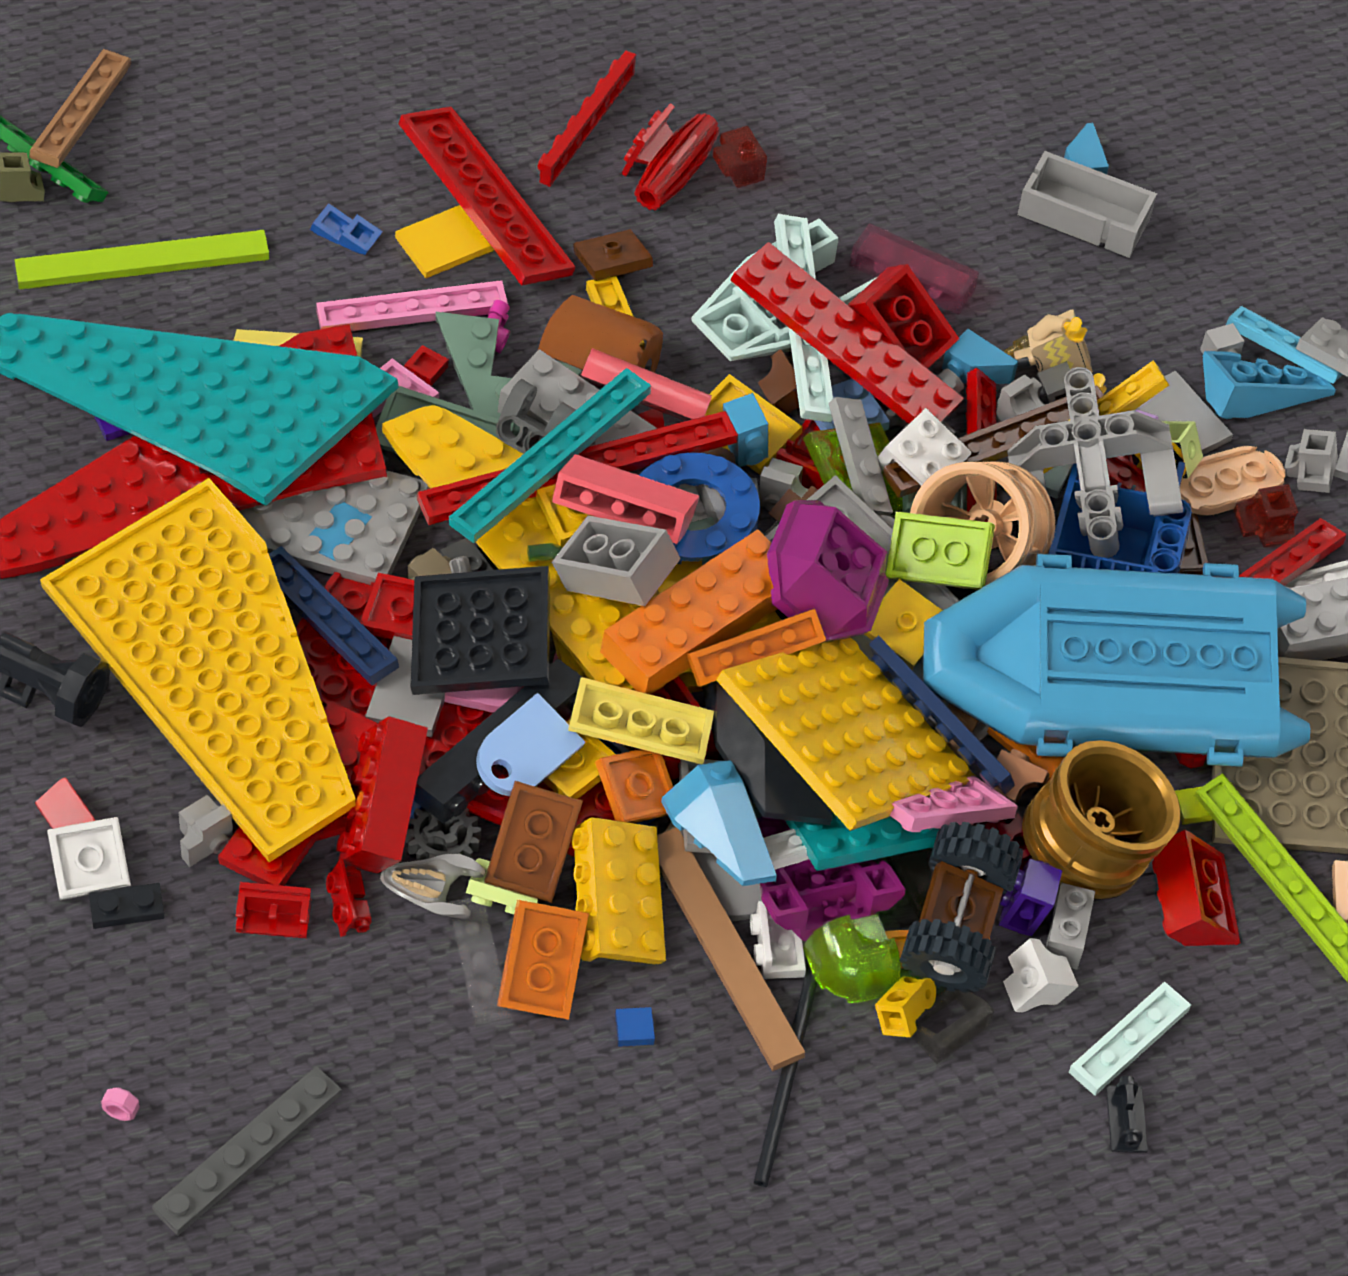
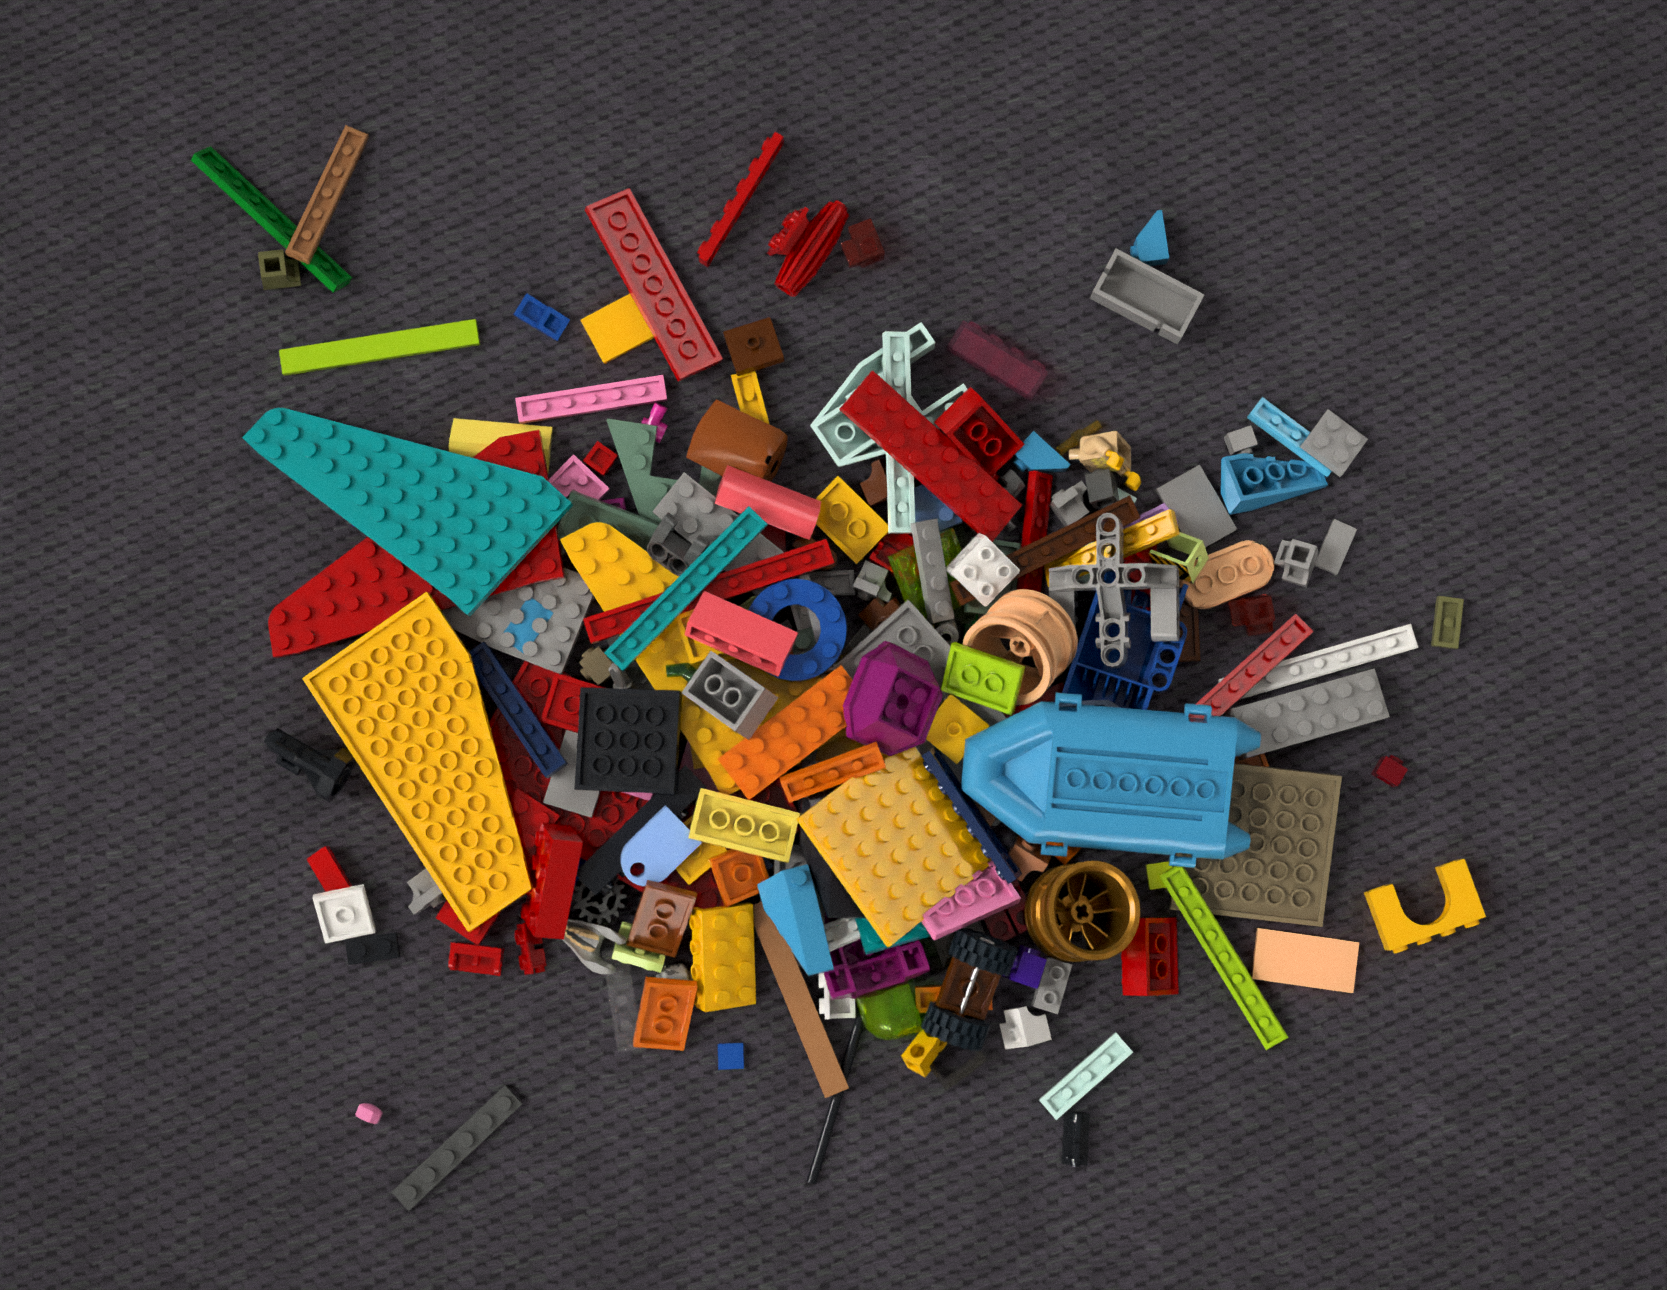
camera: 10 degrees right, 30 degrees up
(751, 430) = (844, 544): dark azure brick -> none

